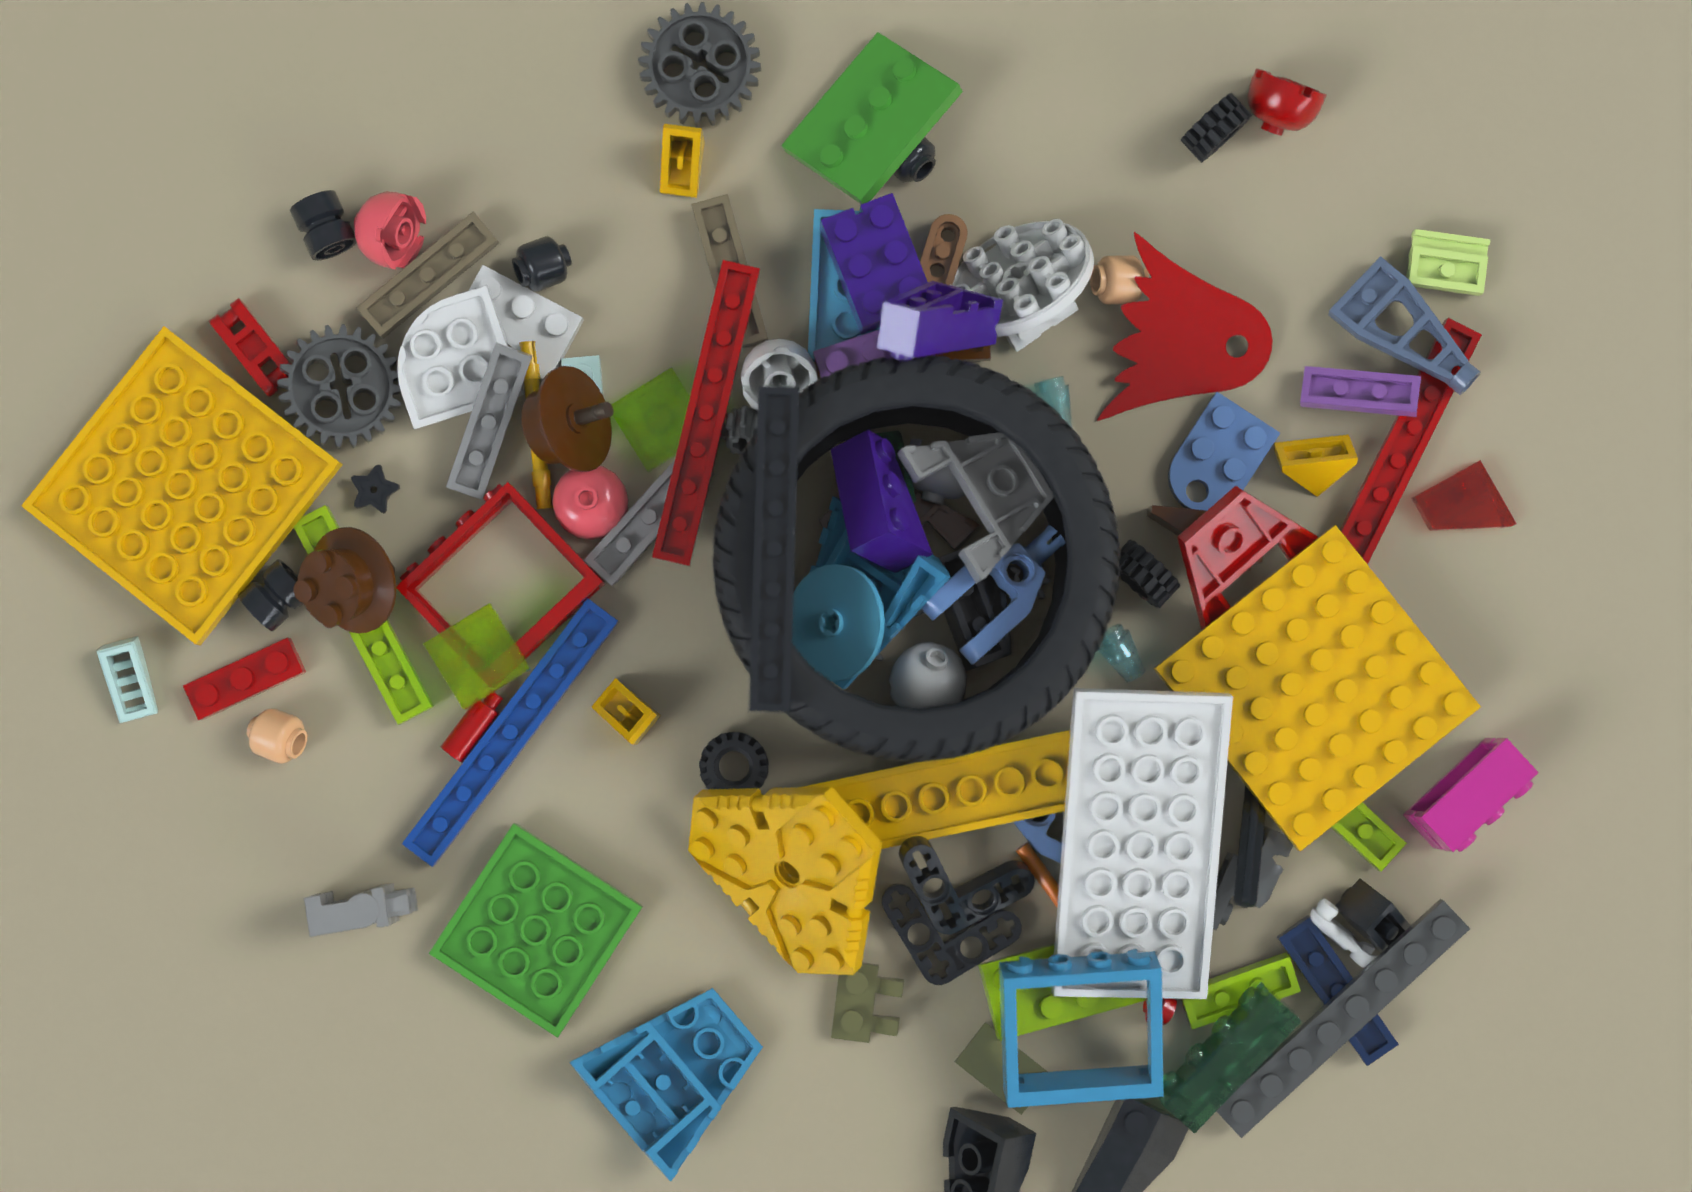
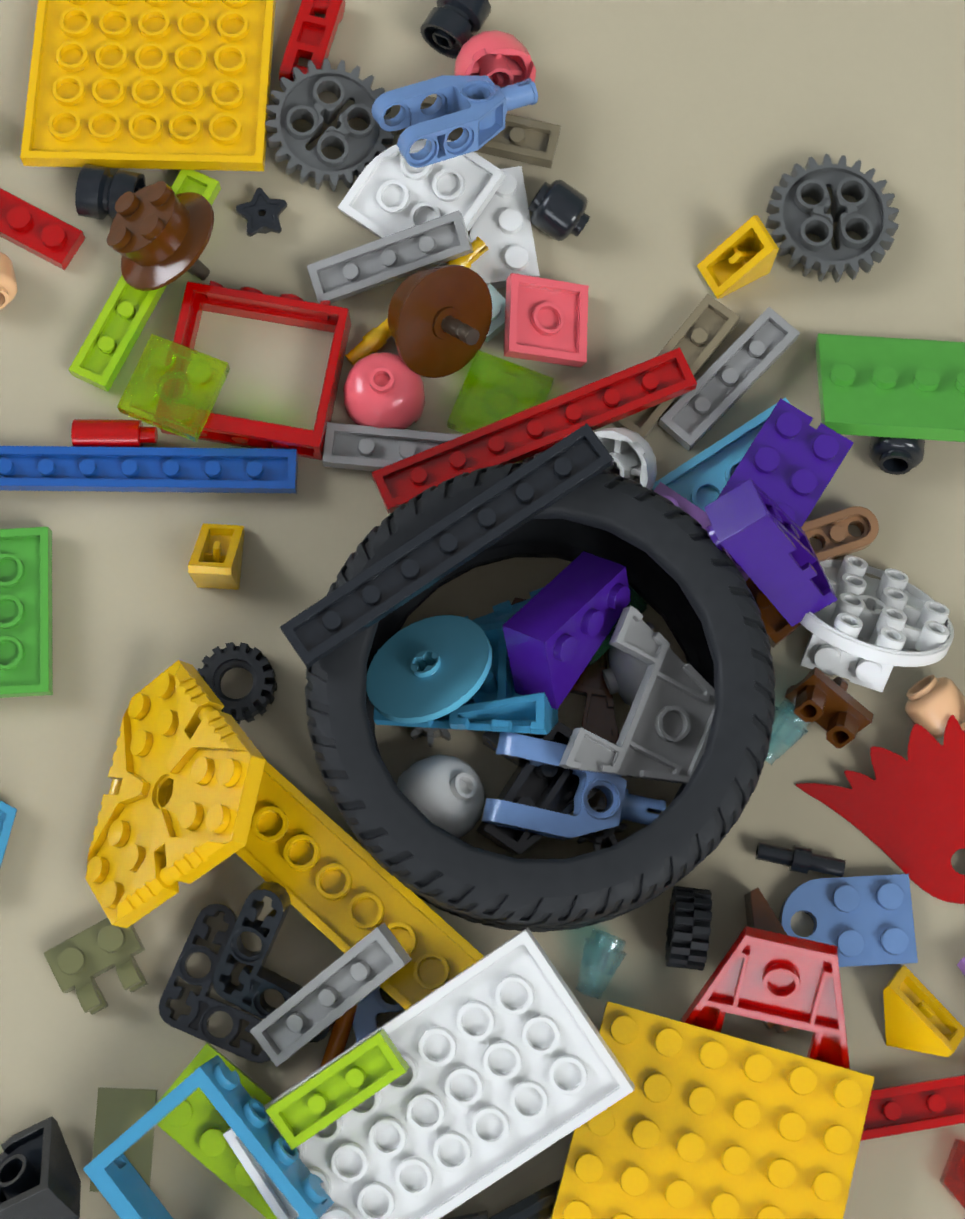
camera: 60 degrees right, 10 degrees down
(410, 264) = (460, 102): none -> medium blue piece
(623, 339) = (546, 320): none -> coral plate
(767, 237) = (729, 378): none -> light grey plate
(1013, 855) = (330, 994): none -> light grey plate
(1063, 355) = (830, 706): none -> reddish brown hips
(1085, 895) = (337, 1089): none -> lime plate
(1152, 458) = (800, 859): none -> black bar

